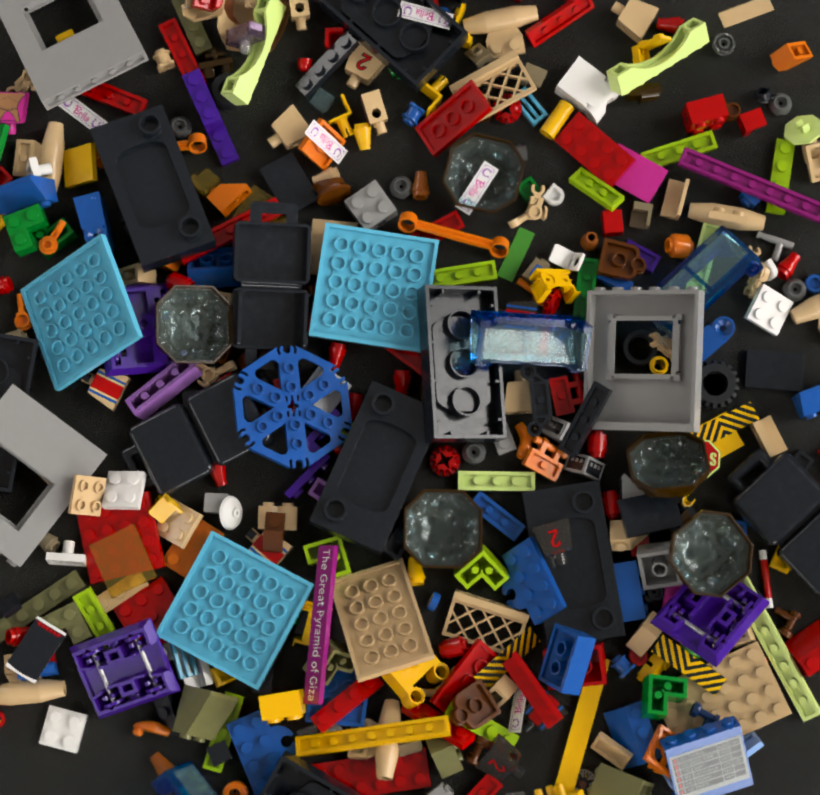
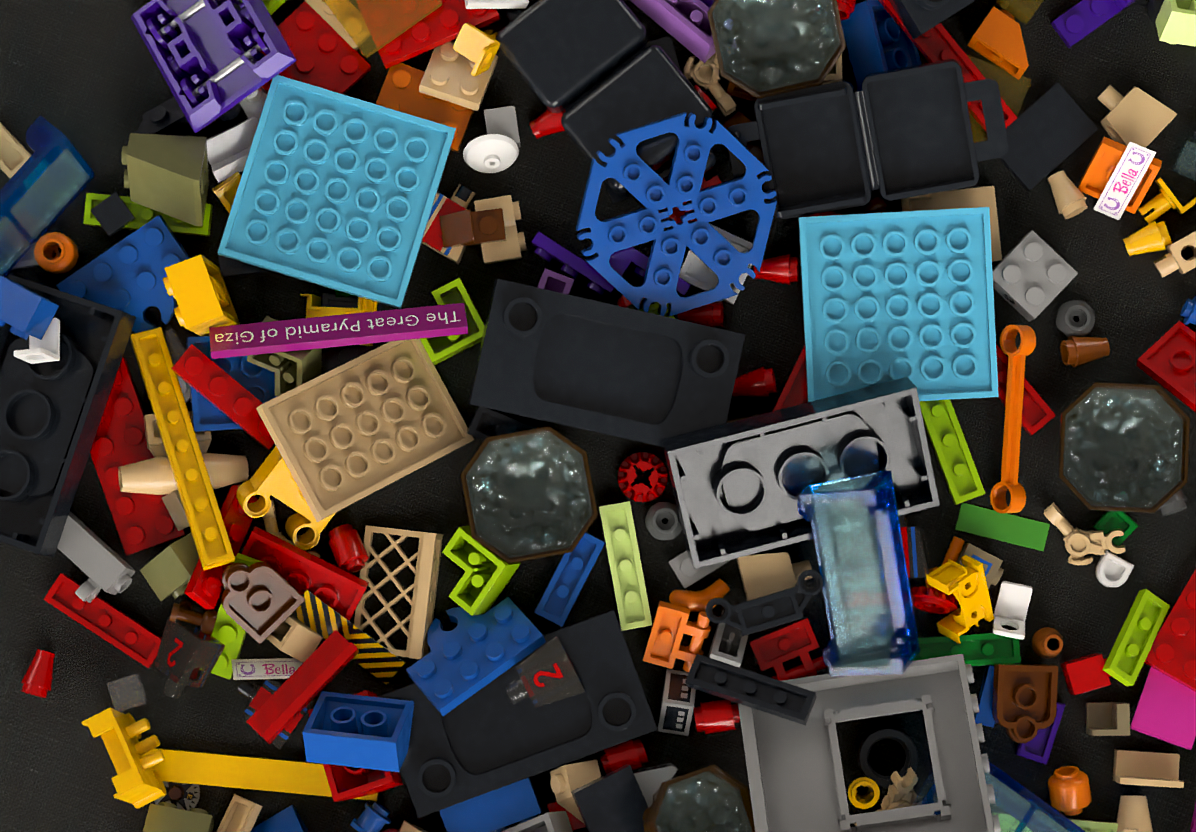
camera: 75 degrees right, 5 degrees up
(151, 727) = (134, 100): orange arm -> none
(160, 763) = (80, 128): dark orange cone -> none
(184, 659) = (225, 140): medium azure tile -> none
(331, 191) = (1044, 206): reddish brown hat -> none
(415, 572) = (452, 465): yellow cone -> none
(433, 601) = (414, 502): blue tile -> none
(478, 185) = (1102, 444): white sticker -> none

